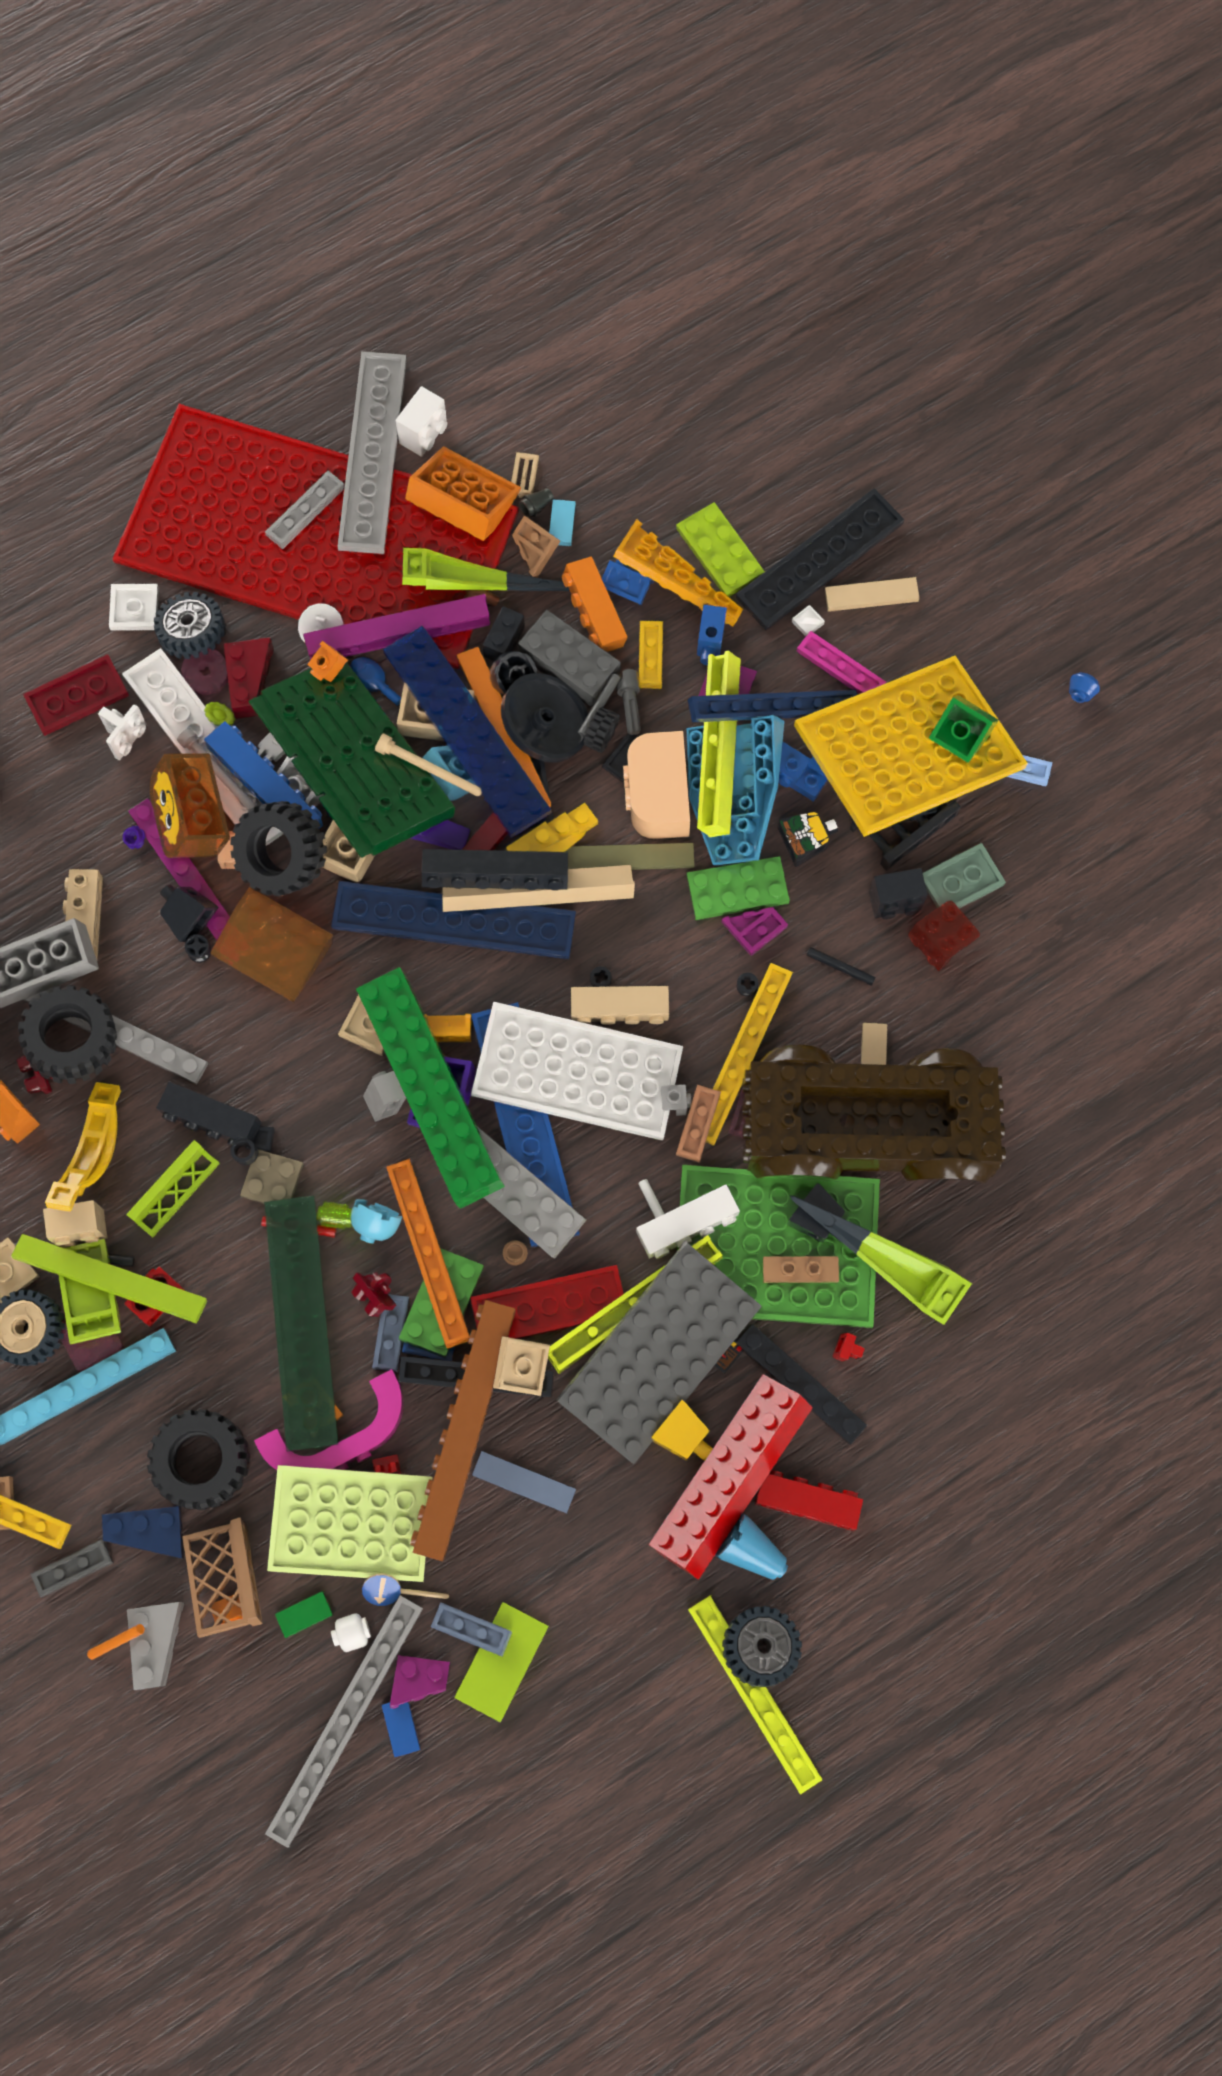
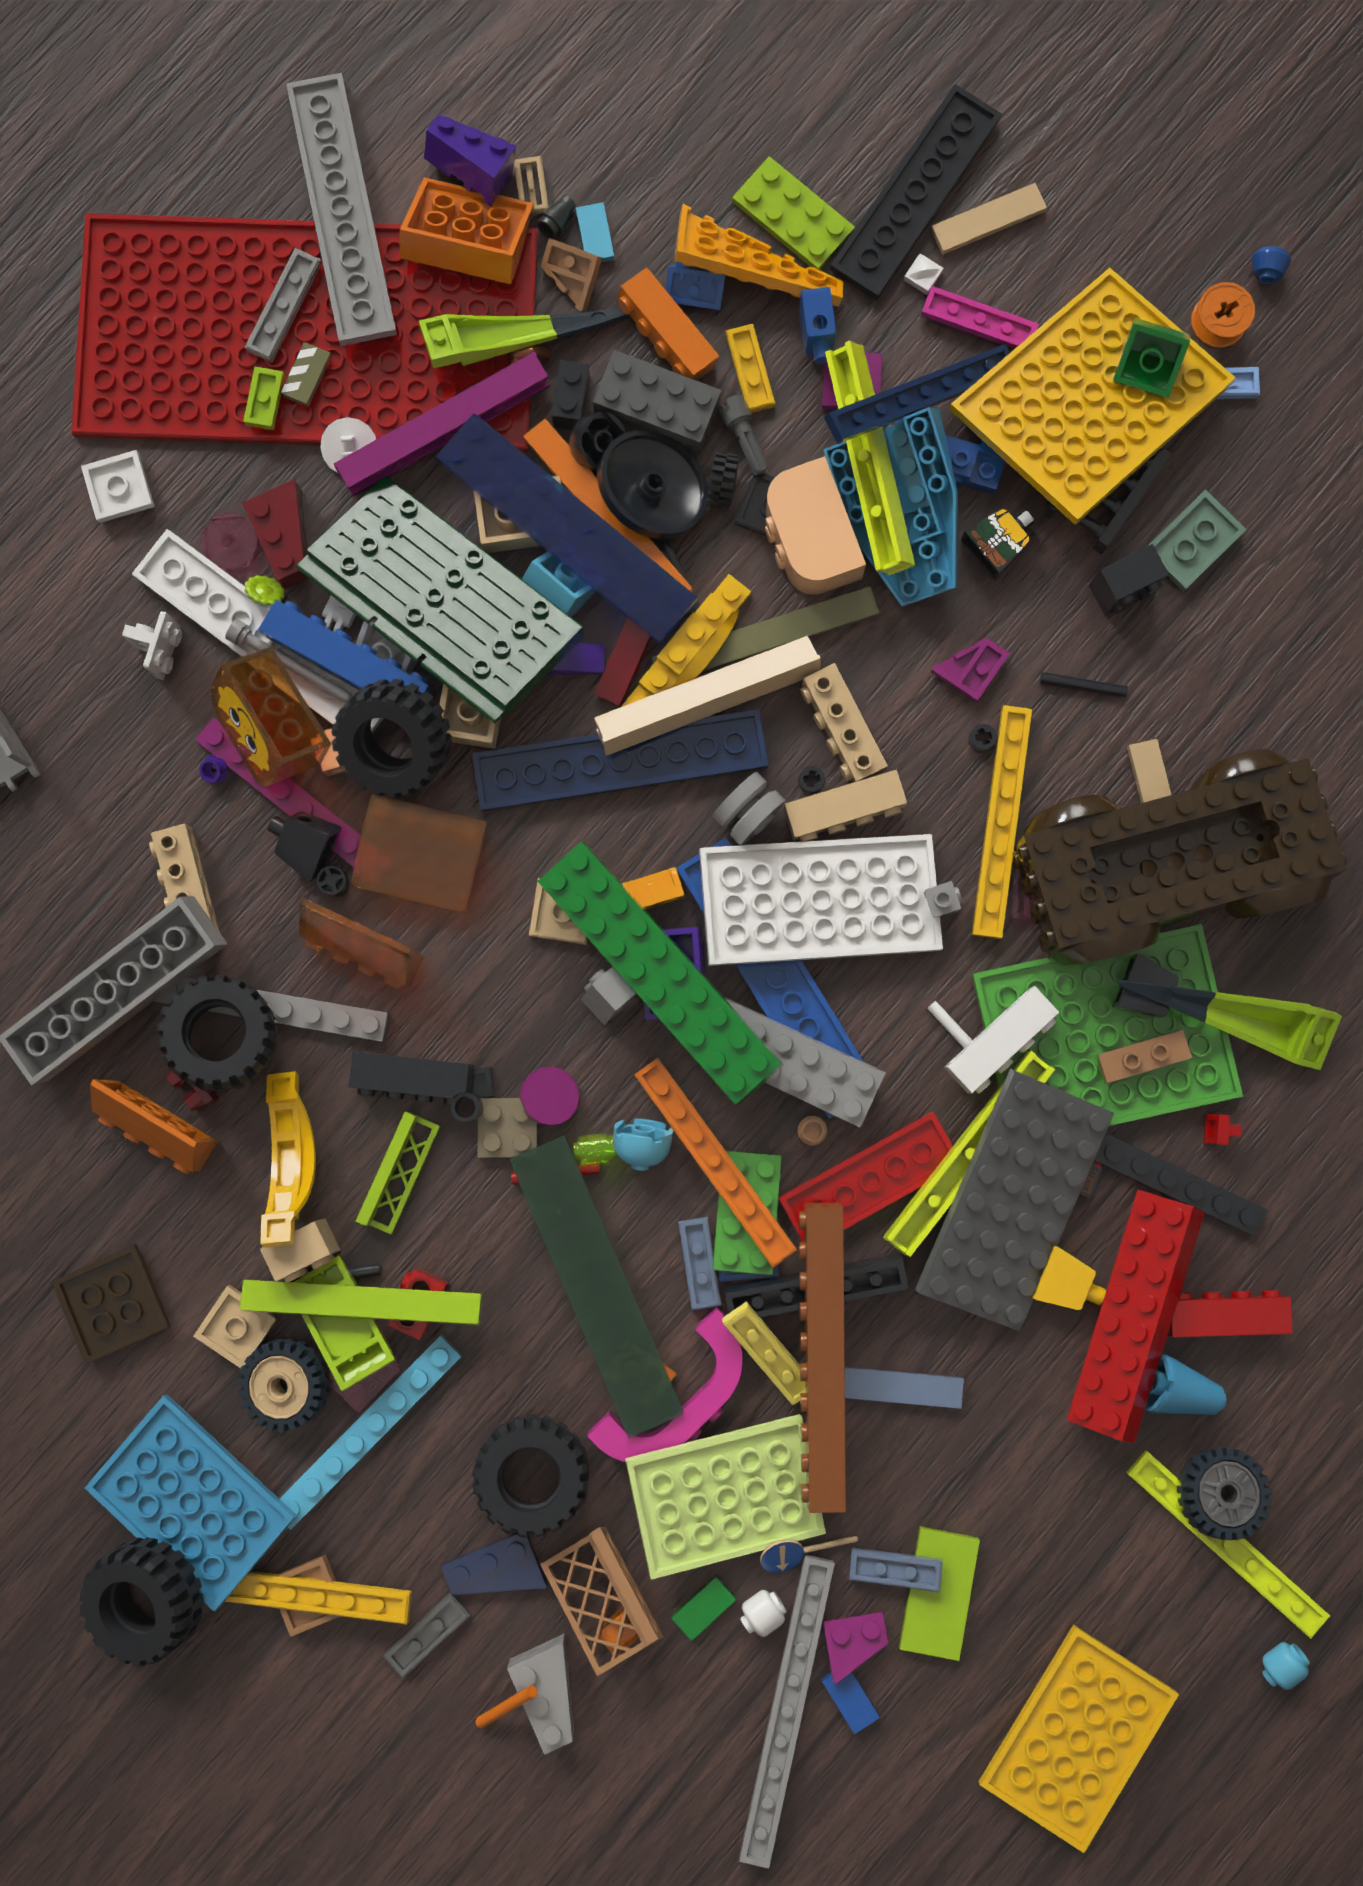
camera: 15 degrees left, 10 degrees up
(76, 695) = (85, 615): dark red plate -> none
(189, 625) = (192, 490): wheel -> none
(201, 999) = (357, 943): none -> clear orange slope
(267, 572) = (264, 398): none -> lime plate
(305, 564) = (306, 374): none -> olive tile
(313, 1163) = (549, 1096): none -> magenta tile
(326, 662) = (383, 490): orange brick -> none
(373, 678) = (432, 492): blue piece -> none
(376, 1290) = (670, 1223): dark red hips -> none
(387, 746) = (480, 576): tan piece -> none
(387, 1465) = (744, 1415): red tile -> none
(419, 1412) = (766, 1351): none -> light yellow tile
(421, 421) = (389, 153): white brick -> none
(484, 440) = (470, 155): none -> dark purple wedge
(494, 869) = (655, 690): black brick -> none
(521, 1366) = (868, 1268): tan tile -> none
(541, 983) = (745, 806): none -> light grey wheel
(579, 1819) = (1078, 1738): none -> yellow plate
(601, 701) = (711, 449): dark grey bar -> none
(639, 940) = (843, 724): none -> tan brick
(698, 1123) = (977, 920): nougat tile -> none
(737, 888) = (937, 625): bright green plate -> none
(771, 1809) = (1285, 1665): none -> medium azure head
(943, 934) = (1193, 613): clear red bracket -> none
(1039, 704) = (1224, 330): none -> orange piece

